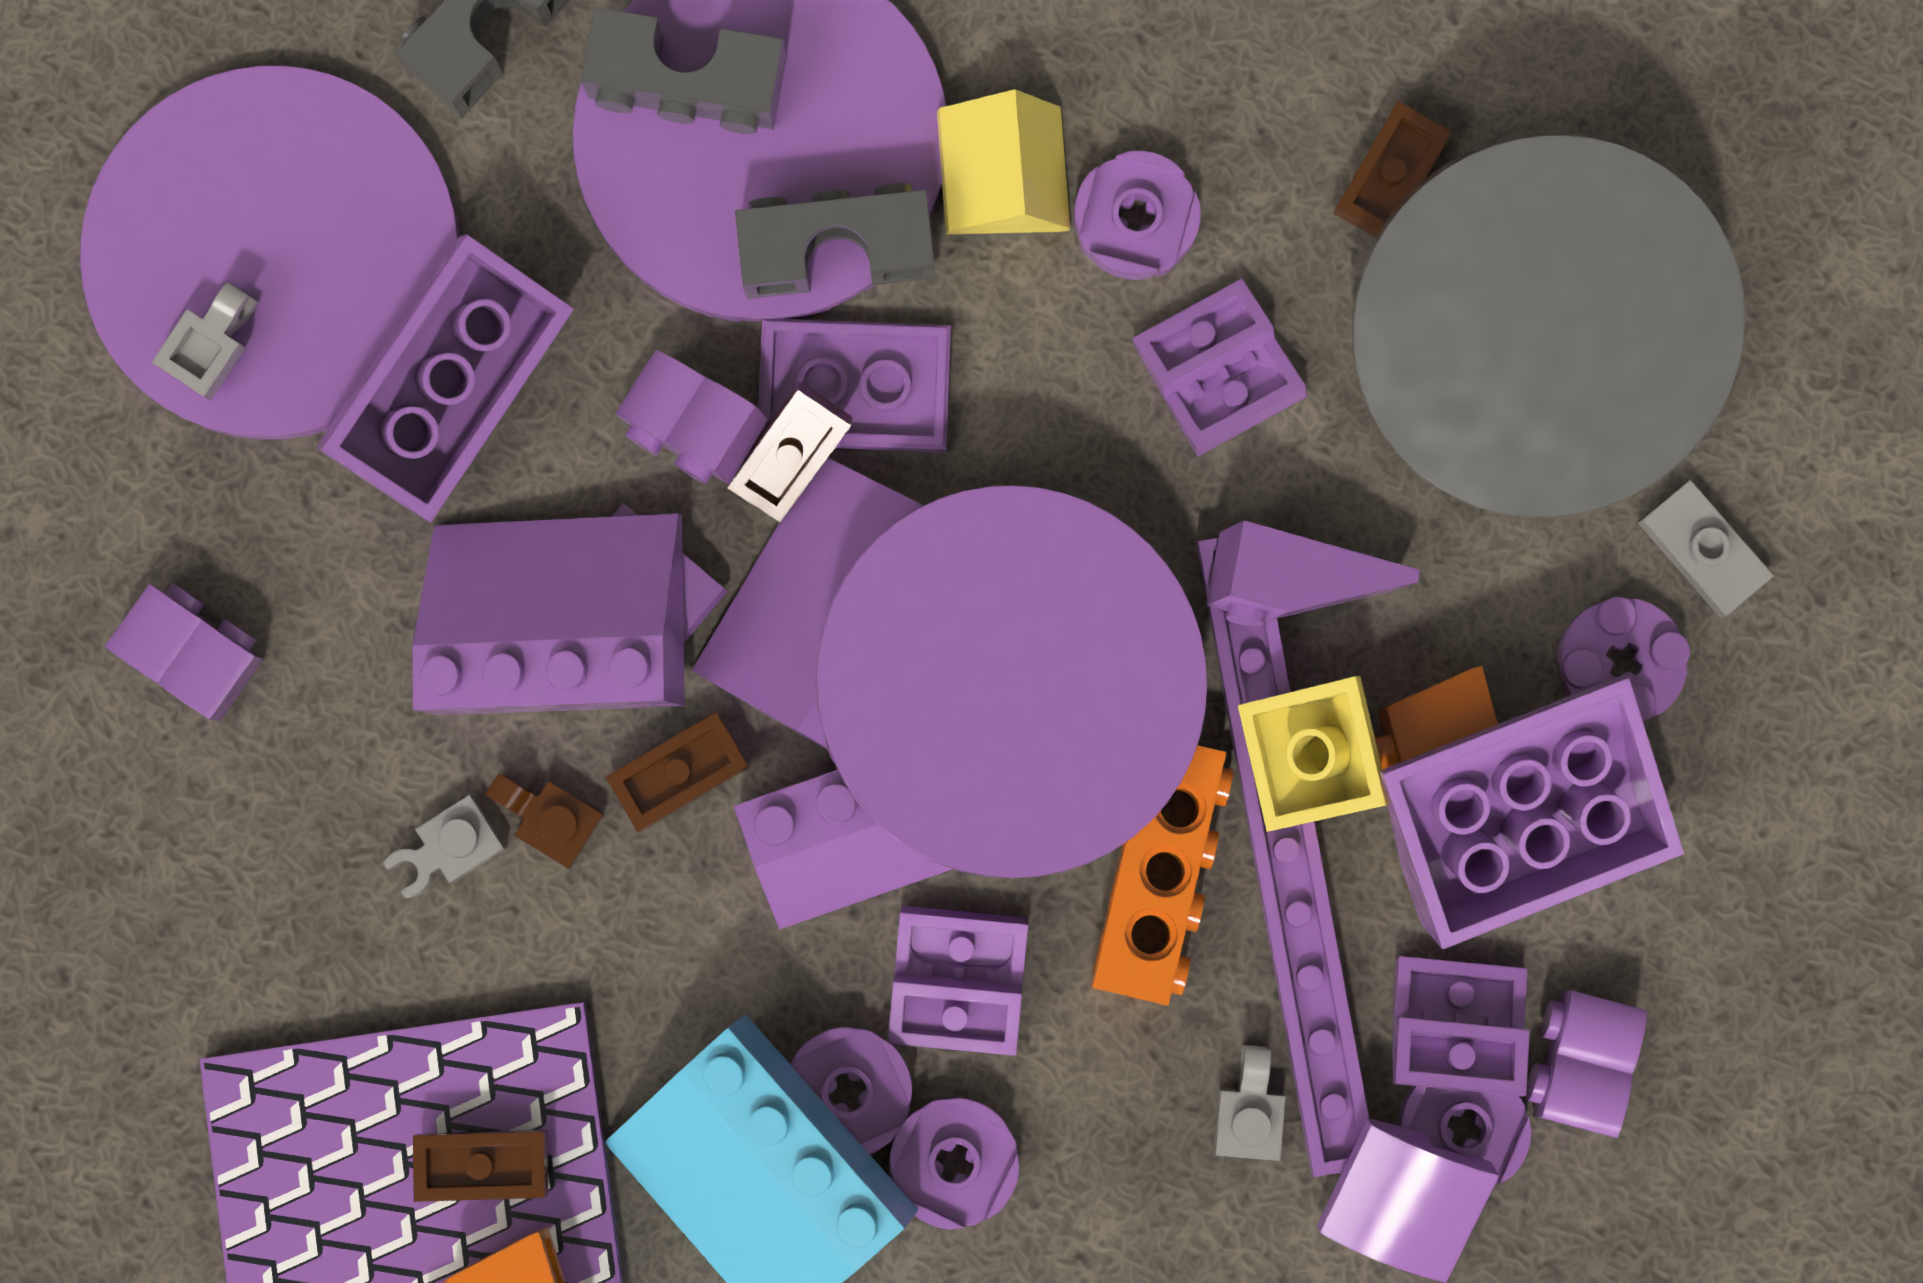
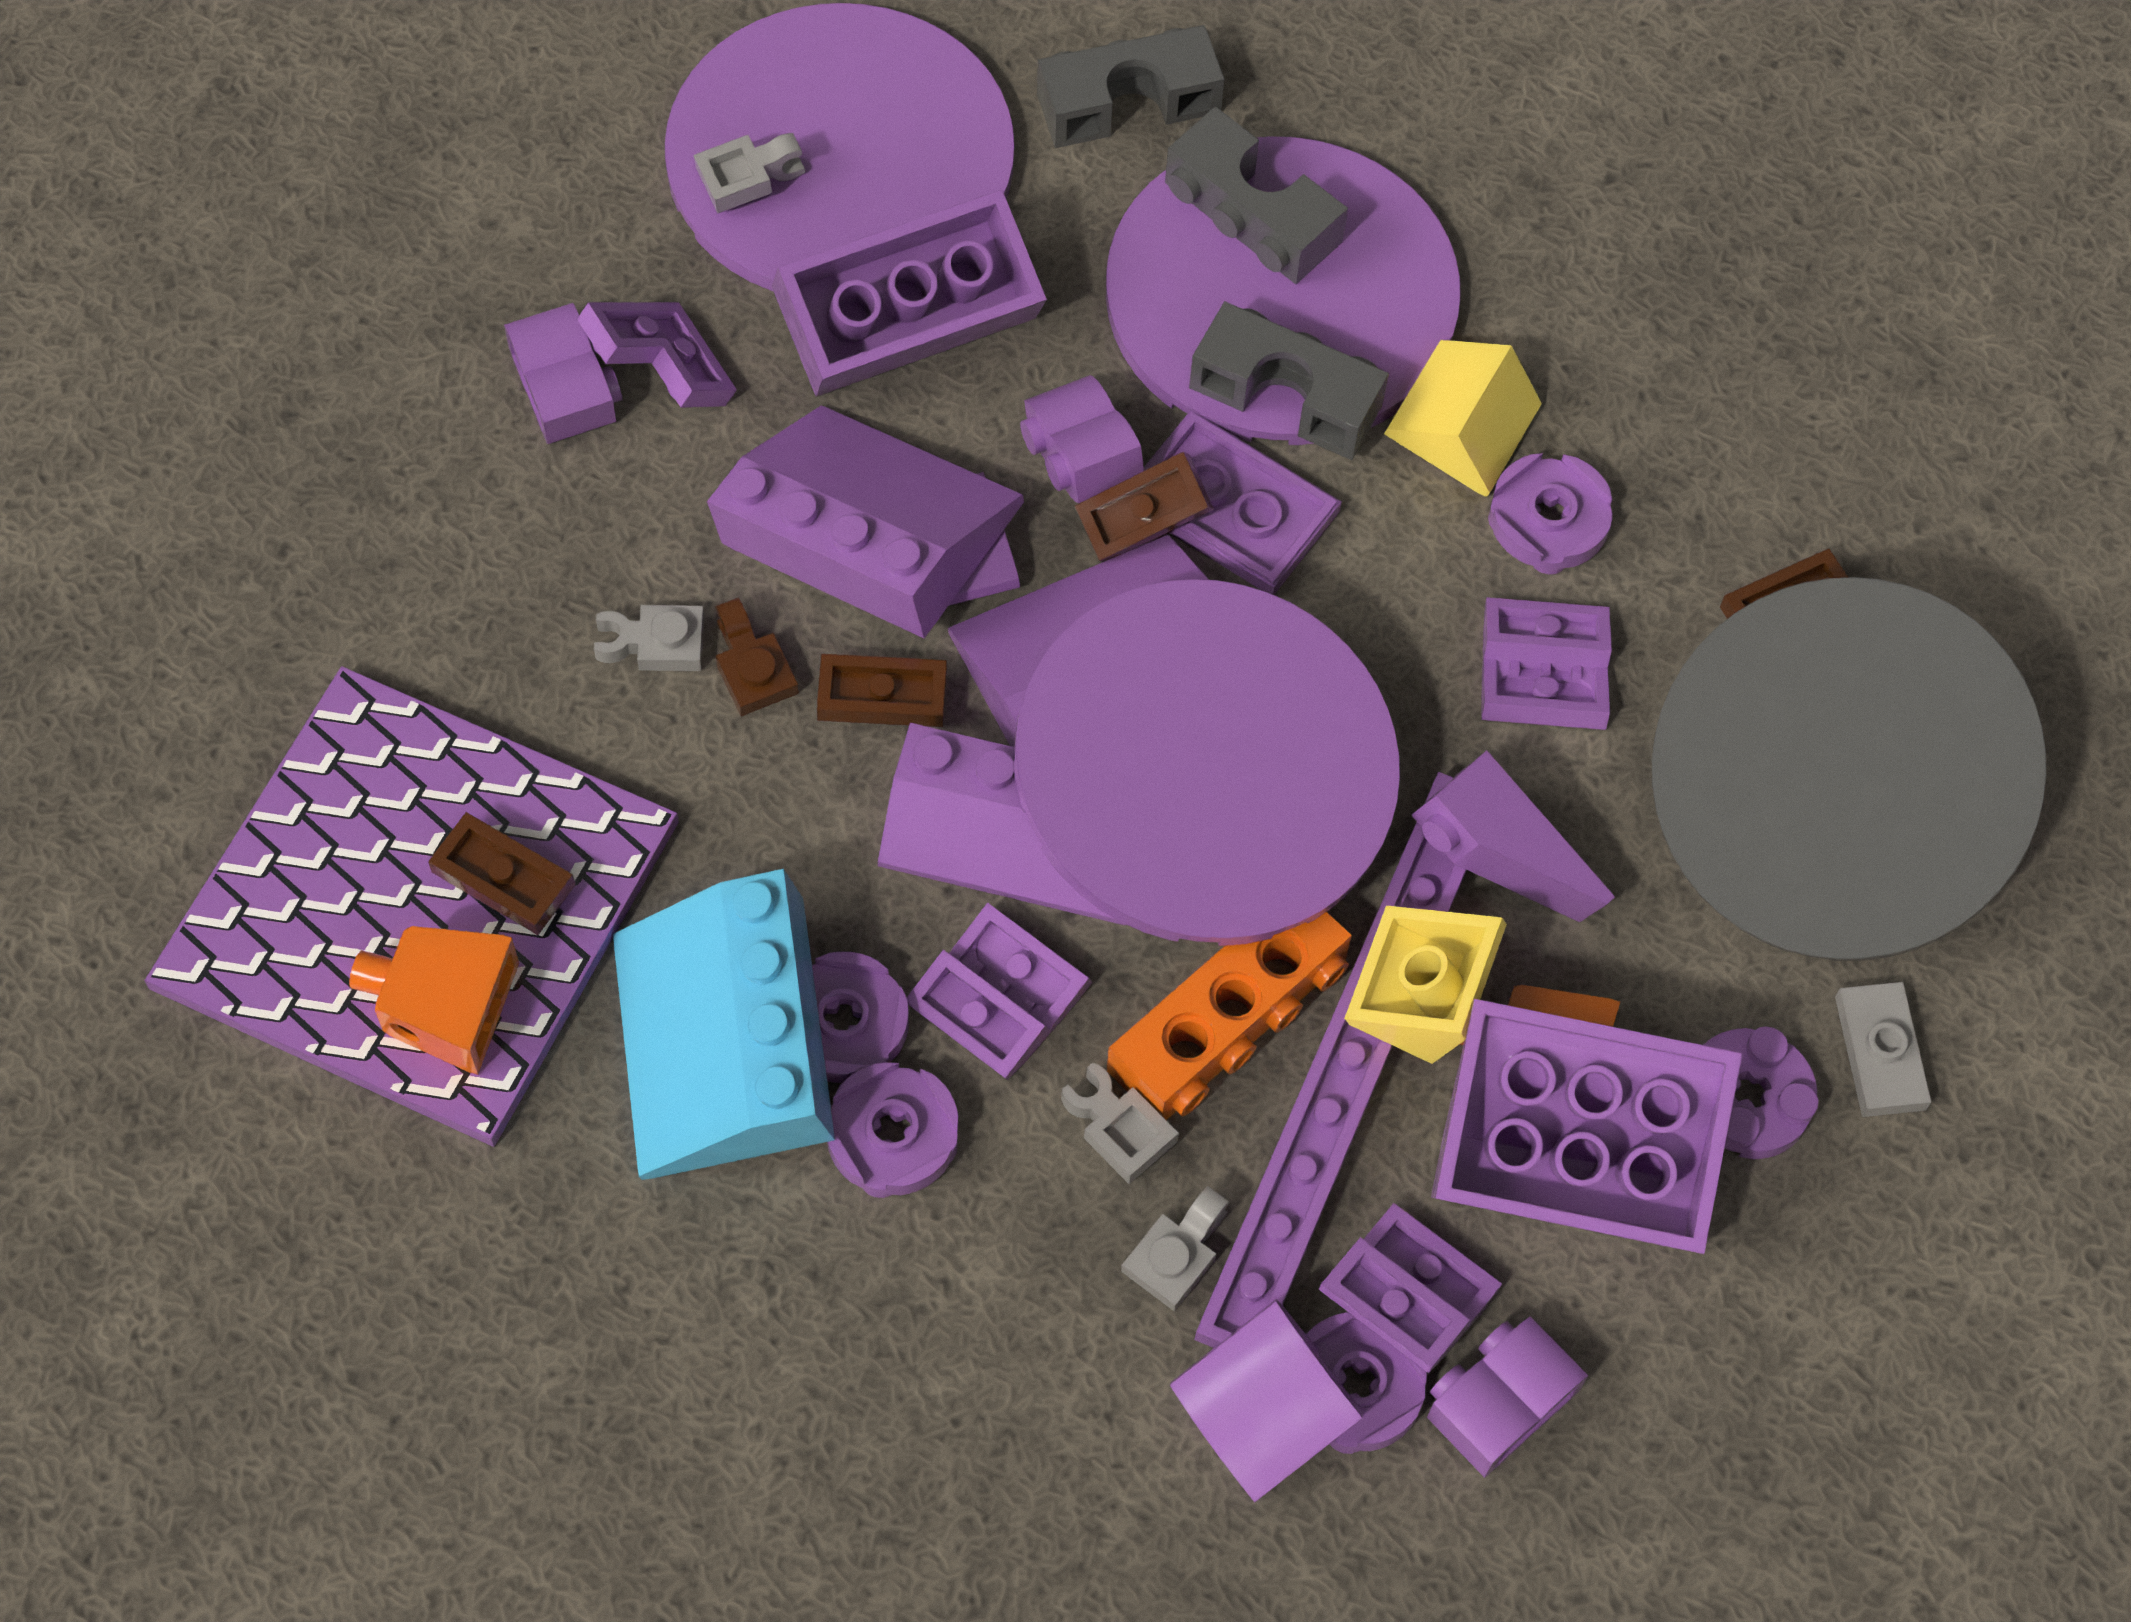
camera: 30 degrees right, 20 degrees down
(252, 560) = (660, 336): none -> medium lavender plate
(1144, 1037) = (1122, 1129): none -> light grey plate

